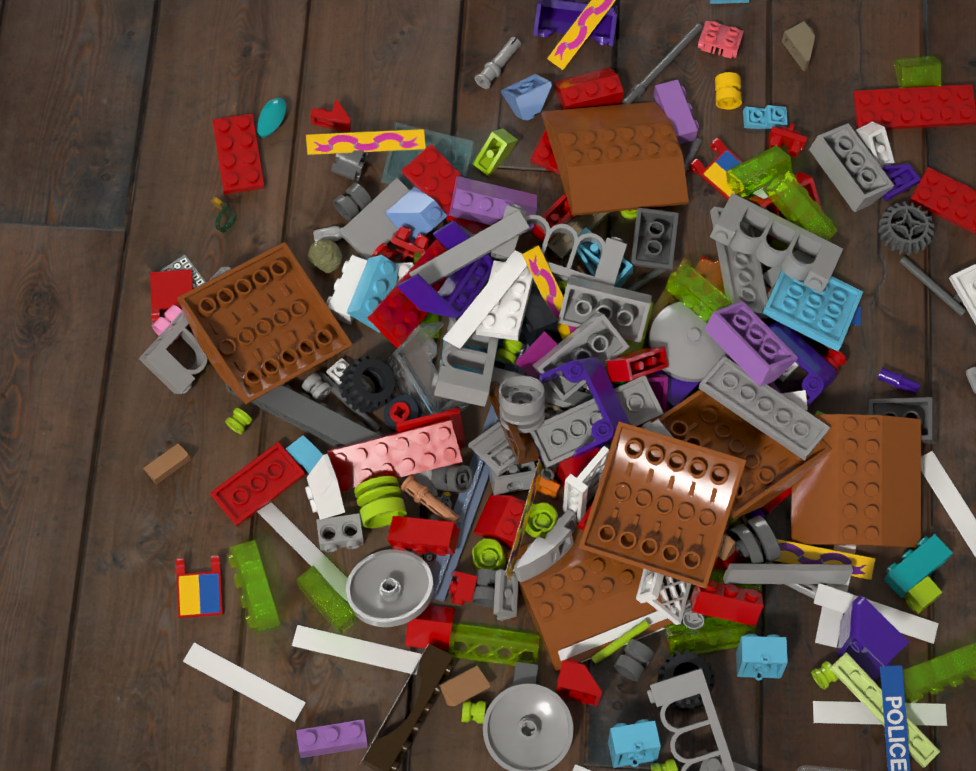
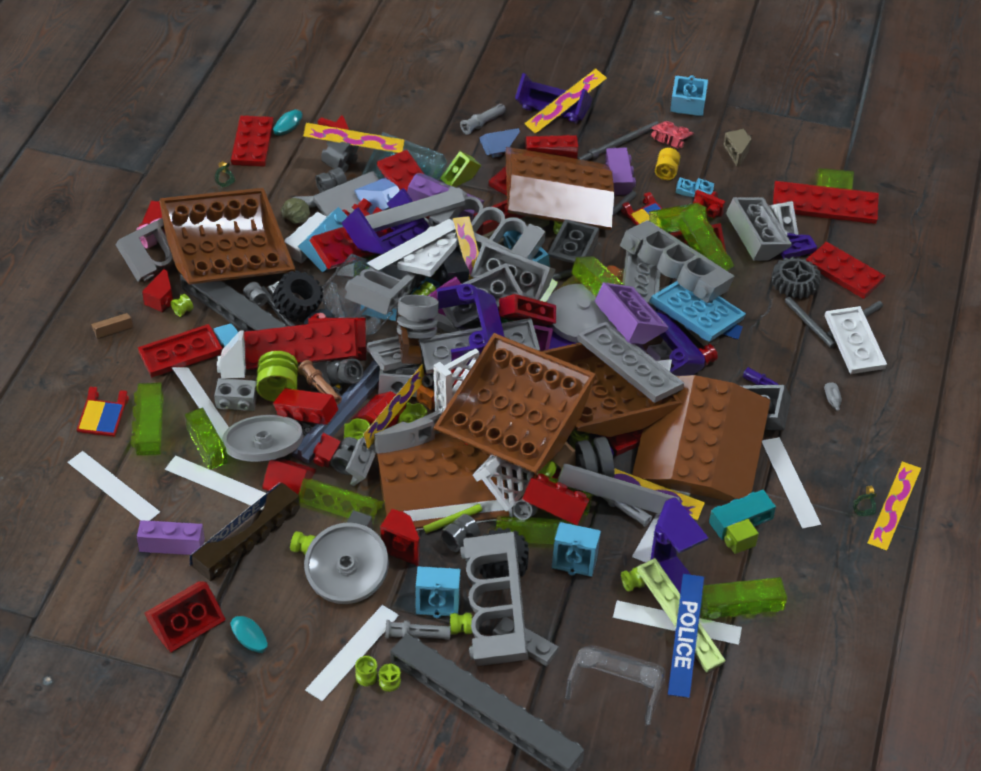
camera: 15 degrees right, 20 degrees down
(207, 408) = (158, 292): none -> red slope
(464, 686) = (301, 521): medium nougat slope -> none
(902, 621) = (706, 549): white sticker -> none

